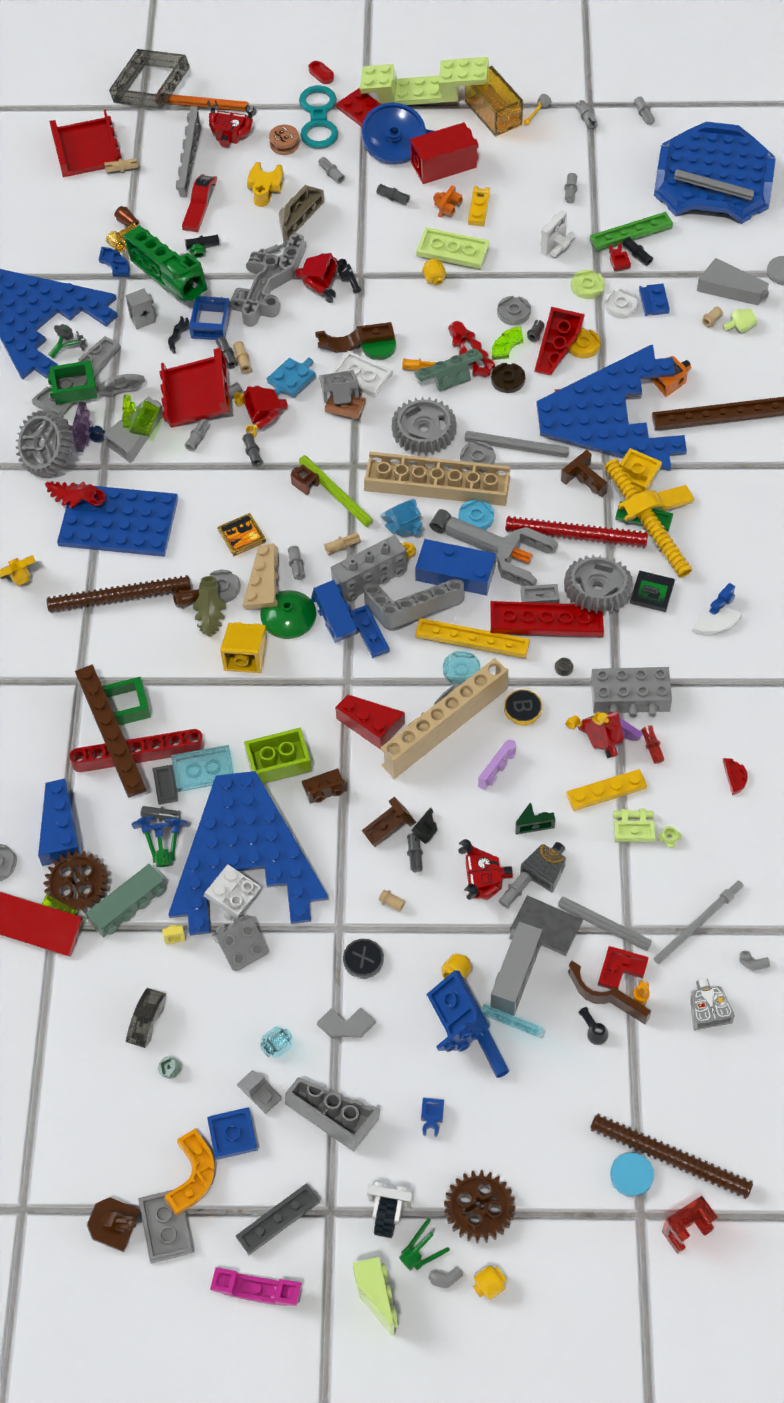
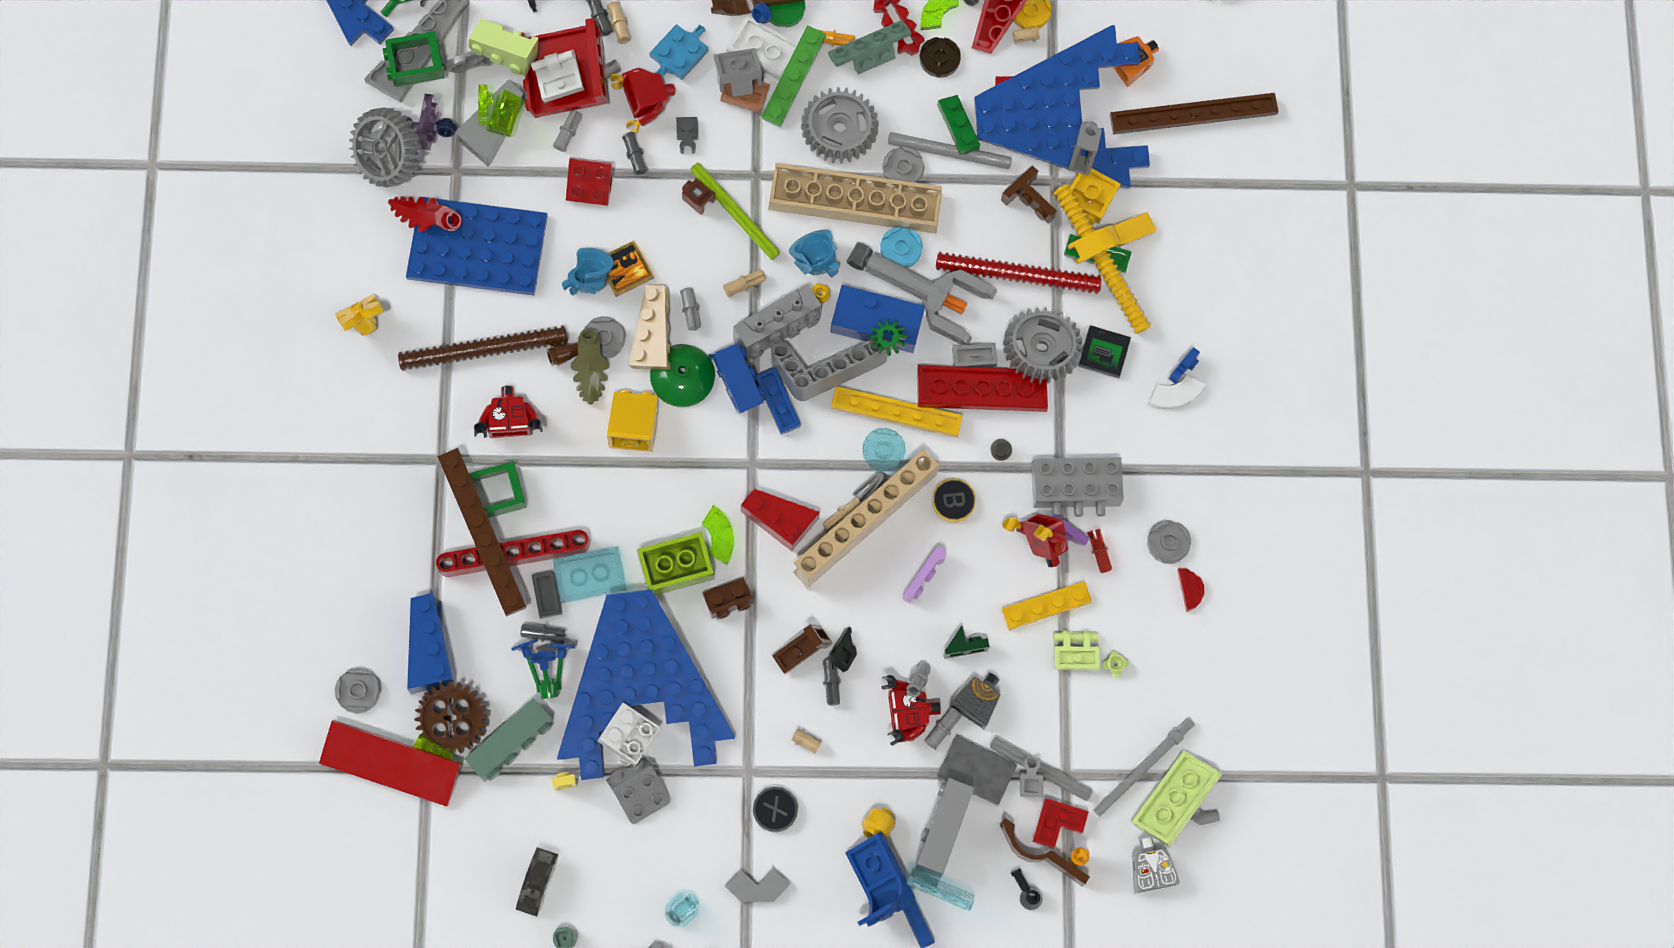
camera: 10 degrees left, 15 degrees up
(137, 645) = (508, 417): none -> red torso
(147, 369) = (503, 46): none -> yellowish green wedge
(190, 390) = (558, 75): none -> white plate
(212, 534) = (590, 271): none -> dark azure helmet
(213, 469) = (589, 181): none -> red plate
(296, 435) = (687, 132): none -> dark grey plate
(318, 735) = (721, 535): none -> clear neon green tile
(359, 347) = (761, 13): none -> blue plate
(385, 392) = (793, 76): none -> bright green plate
(466, 580) = (879, 338): none -> green gear
(492, 846) = (918, 679): none -> light grey pin
(524, 424) = (958, 124): none -> green plate
(580, 359) = (1026, 34): none -> tan pin
(596, 933) = (1031, 782): none -> light grey plate
(630, 427) = (1087, 139): none -> light grey torso
(714, 738) = (1168, 542): none -> light grey tile
(729, 945) = (1176, 798): none -> yellowish green plate

